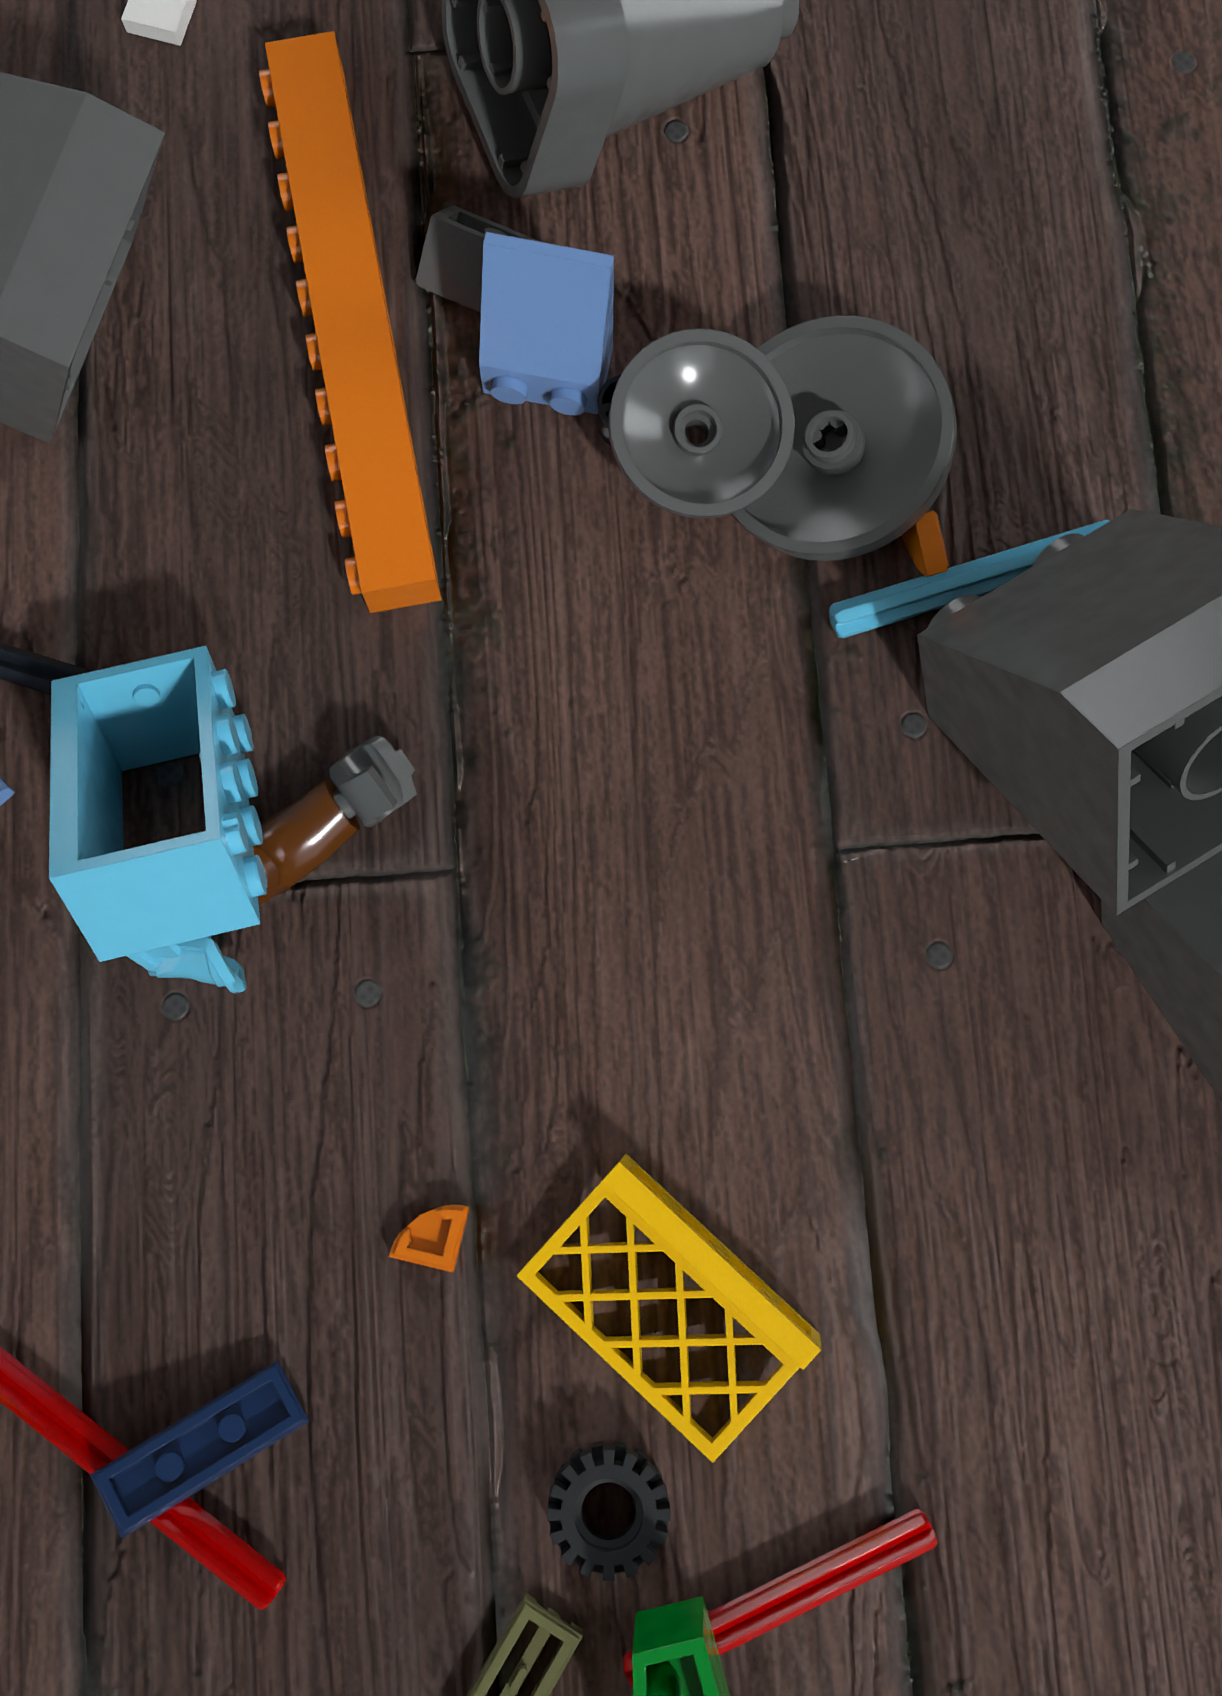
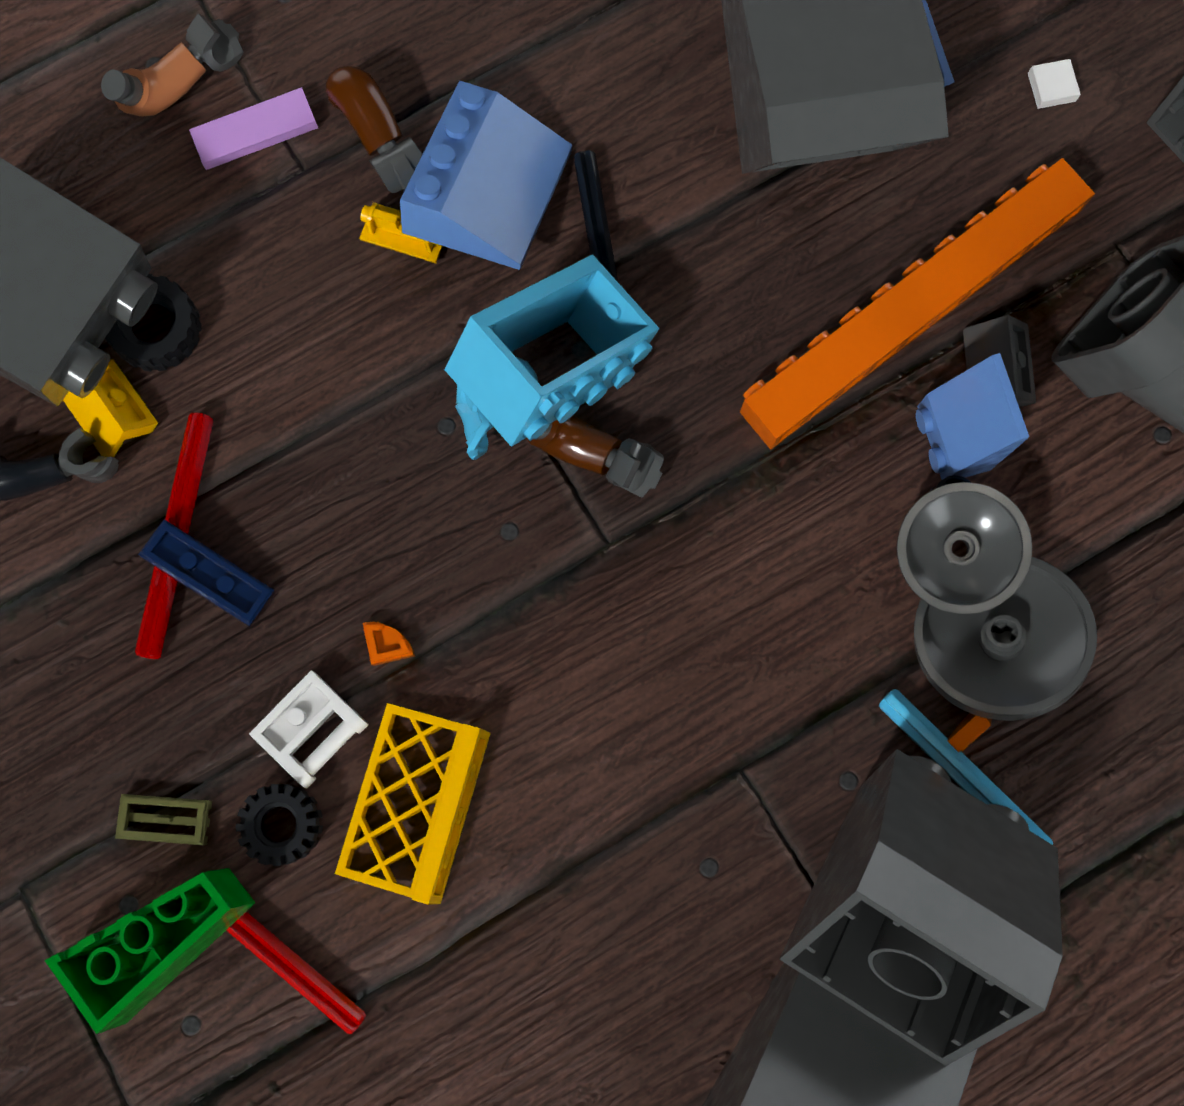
camera: 65 degrees right, 0 degrees up
(475, 1411) = (298, 719): none -> white plate

